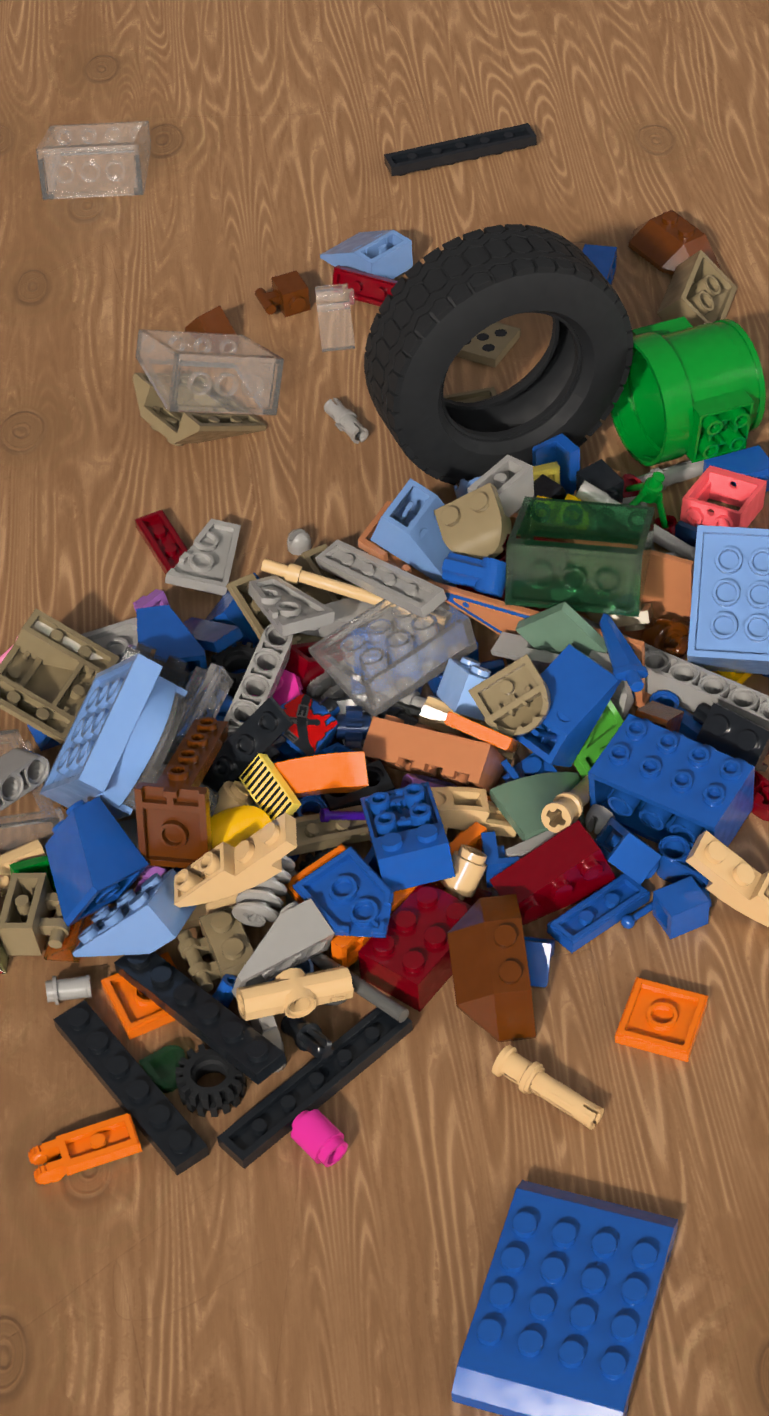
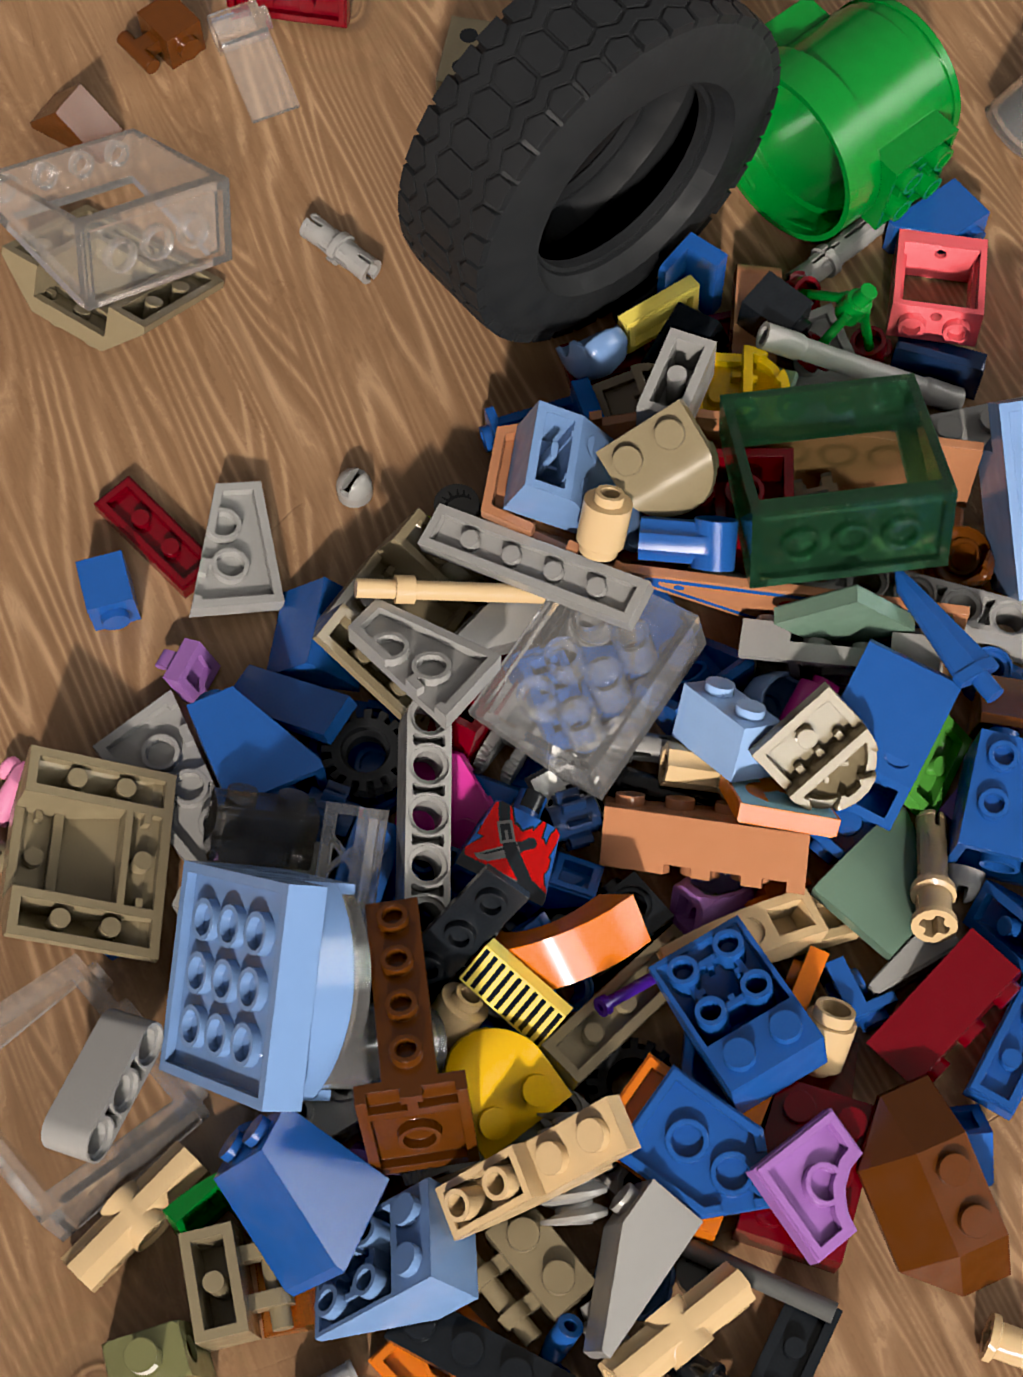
camera: 20 degrees left, 20 degrees up
(122, 562) = (108, 591): none -> blue brick
(409, 926) = (807, 1185): none -> medium lavender tile
(425, 551) = (603, 523): none -> tan brick

